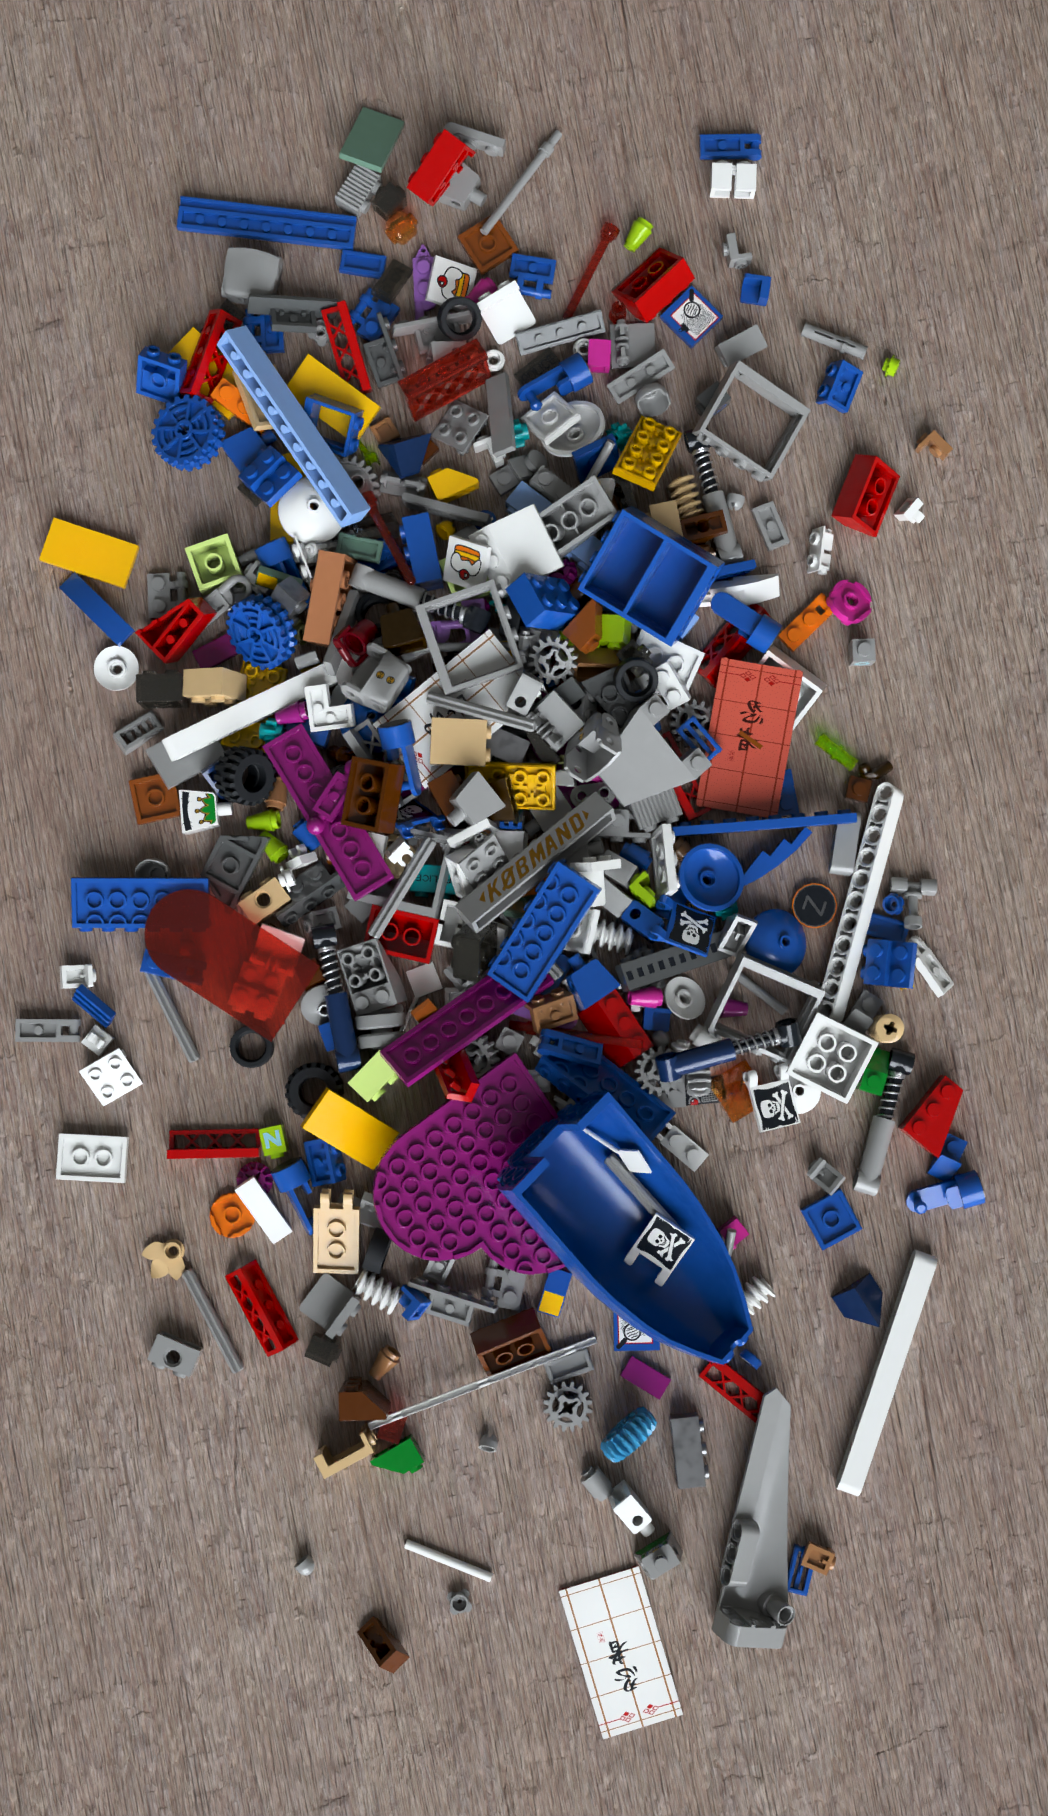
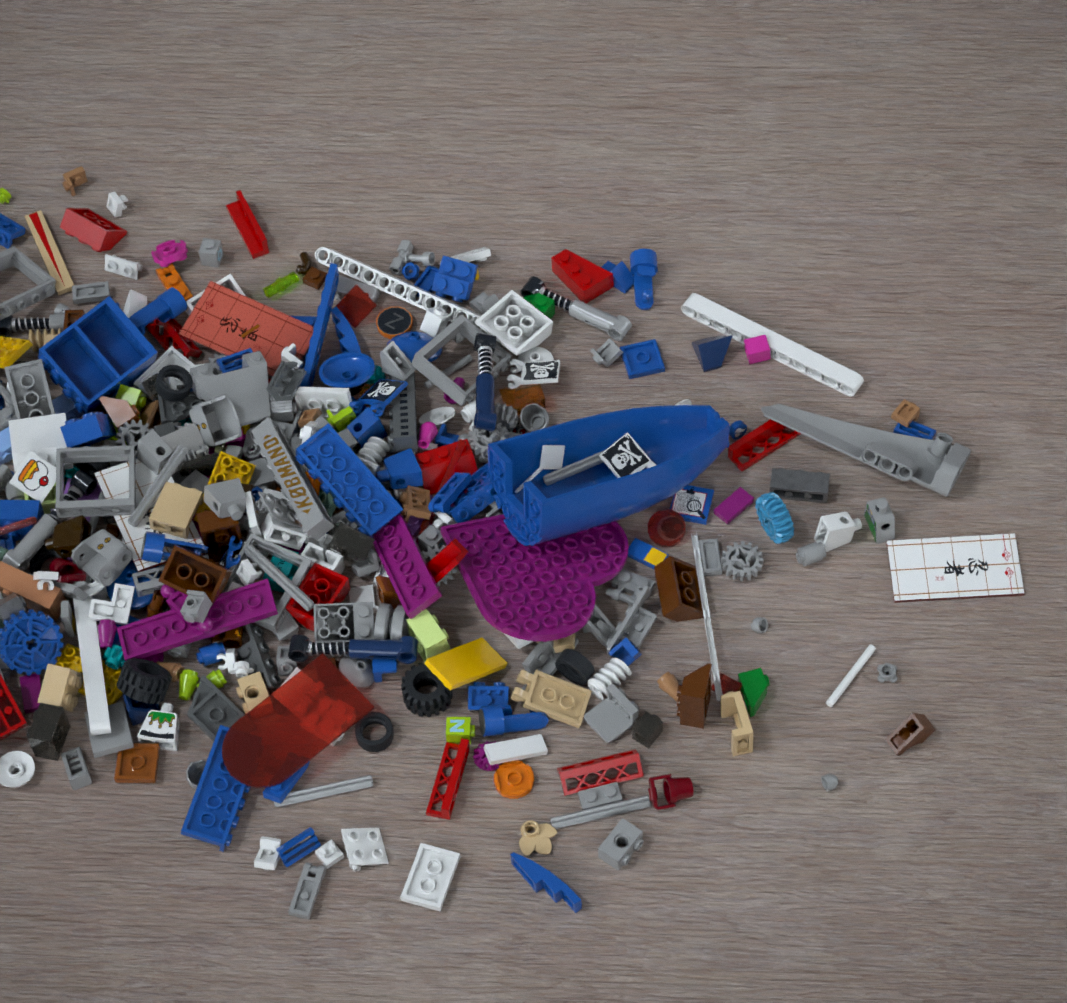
camera: 70 degrees left, 30 degrees down
(115, 1278) = (541, 878): none -> blue slope
(231, 1315) = (600, 796): none -> light grey plate
(252, 1398) = (674, 790): none -> dark red piece
(326, 817) = (196, 606): none -> light grey brick
(331, 625) = (45, 576): none -> white tile
(590, 1311) = (666, 528): none -> clear red tile
(641, 850) = (309, 415): none -> medium nougat tile
(671, 812) = (286, 381): none -> dark grey hinge
(707, 1115) = (534, 417): none -> light grey hair
(713, 805) = (288, 353): none -> white bracket
(817, 958) = (434, 321): none -> white brick
(820, 454) = (49, 252): none -> tan tile
(821, 854) = (356, 306): none -> clear red piece
(873, 1357) = (757, 349): none -> dark pink panel
(894, 1025) = (502, 283): tan piece -> none
(914, 682) = (248, 226): none -> red fence

